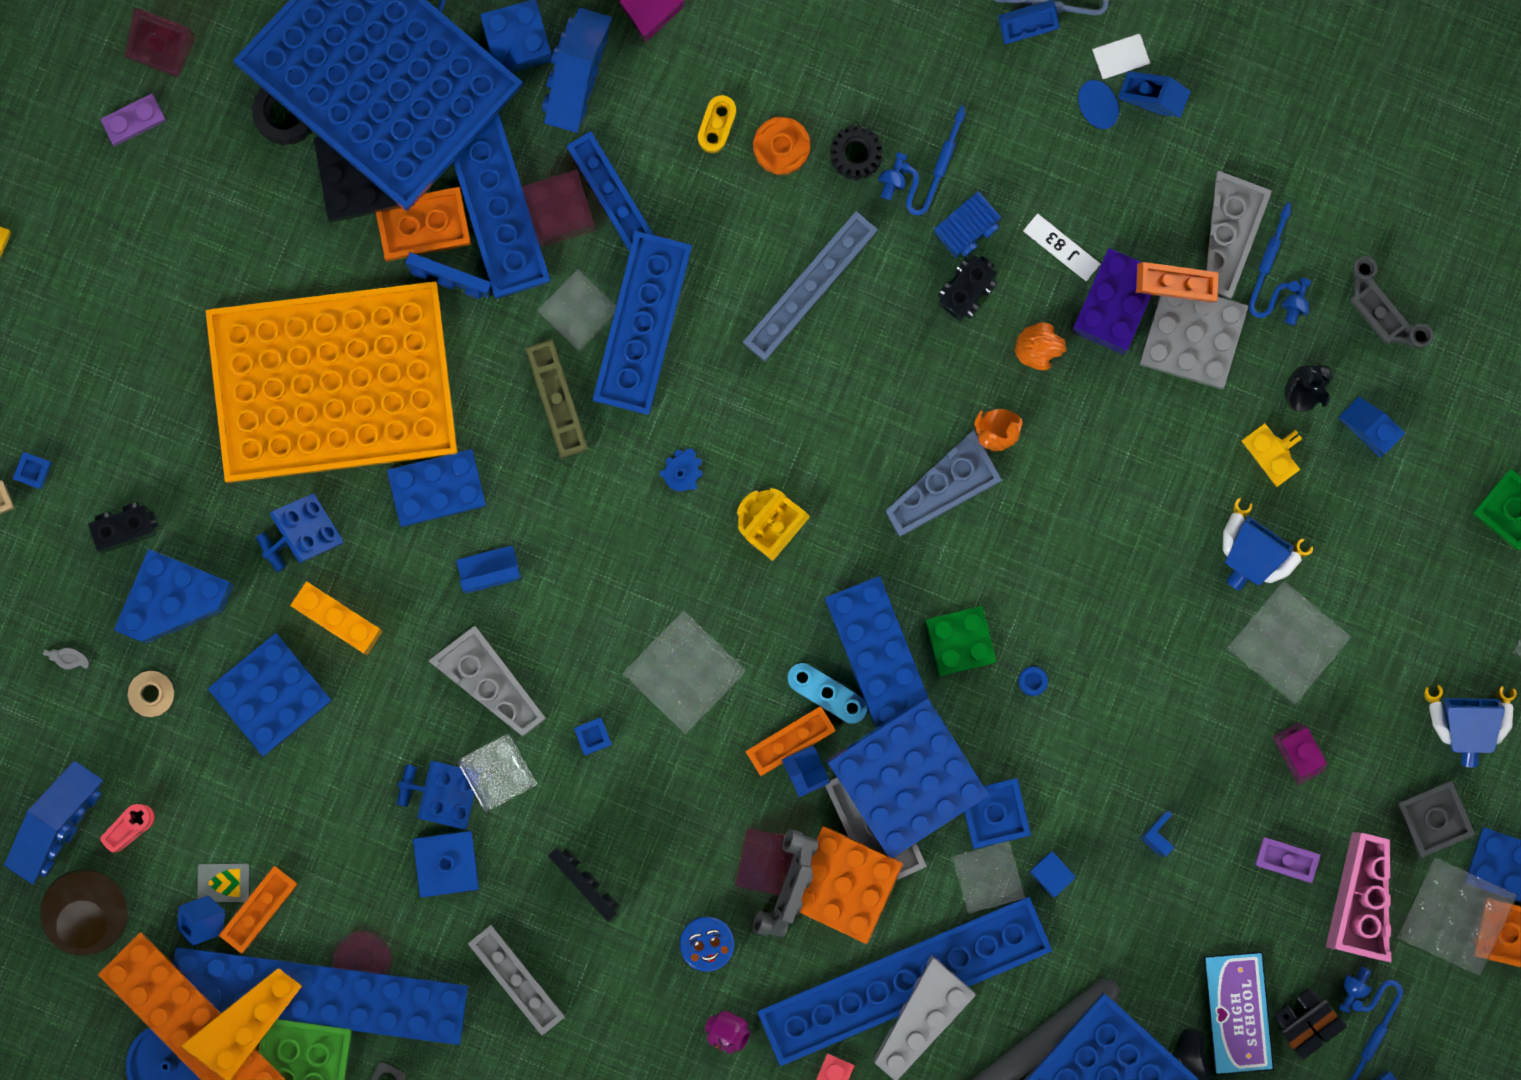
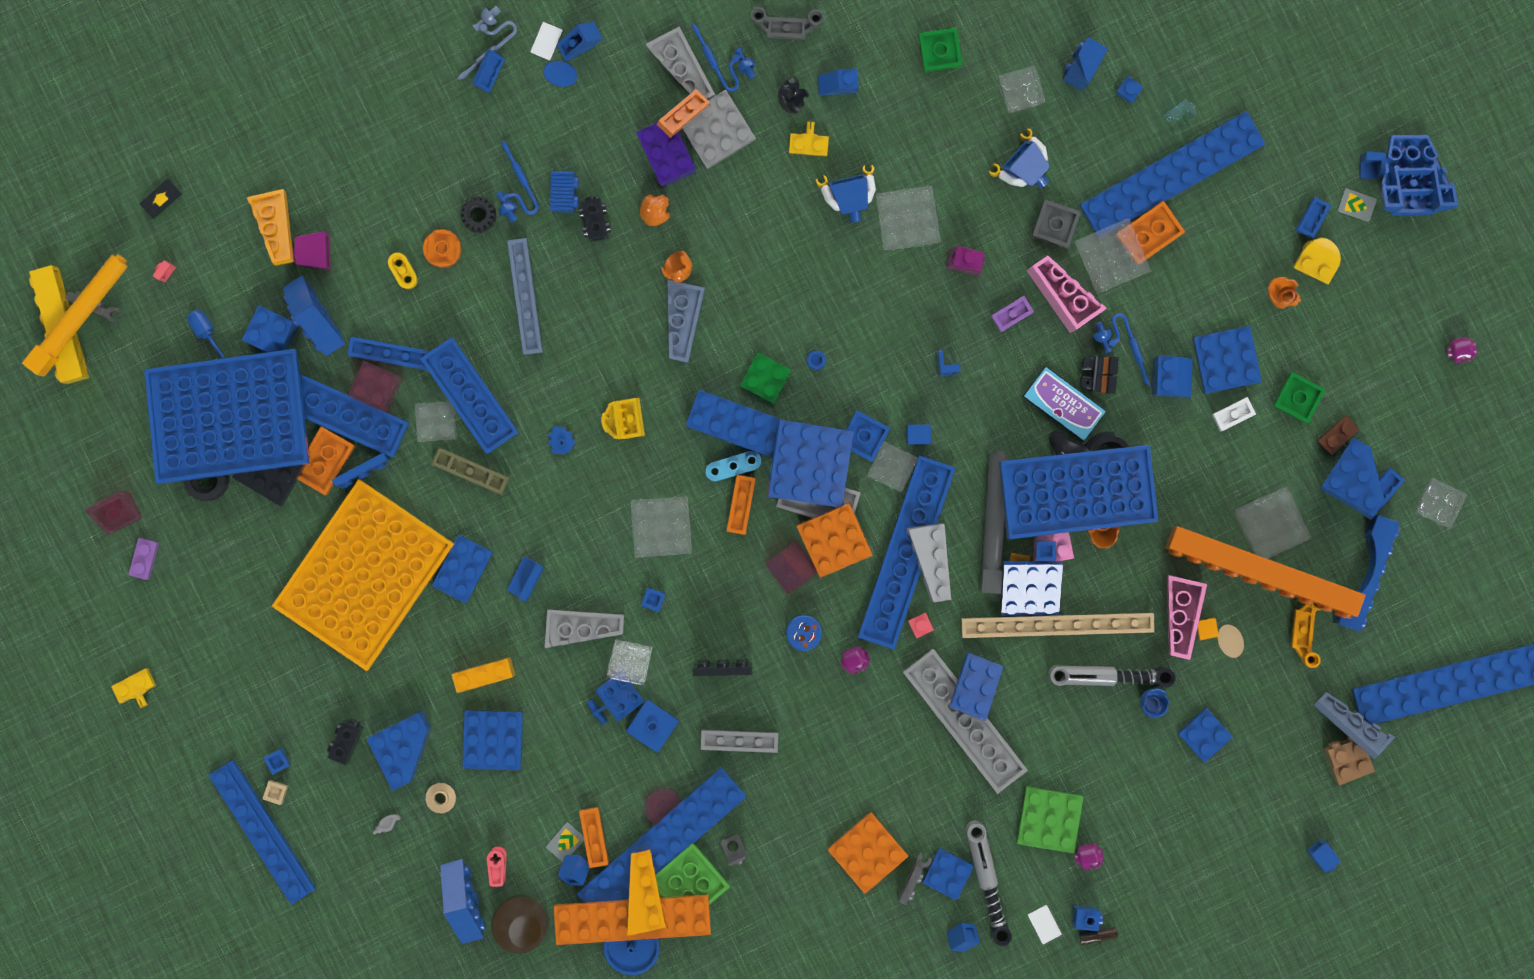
camera: 50 degrees left, 5 degrees up
(303, 528) = (425, 652): blue plate -> none
(796, 880) = (814, 567): dark grey plate -> none
(806, 771) = (762, 510): blue panel -> none
(1061, 247) = (615, 155): white sticker -> none

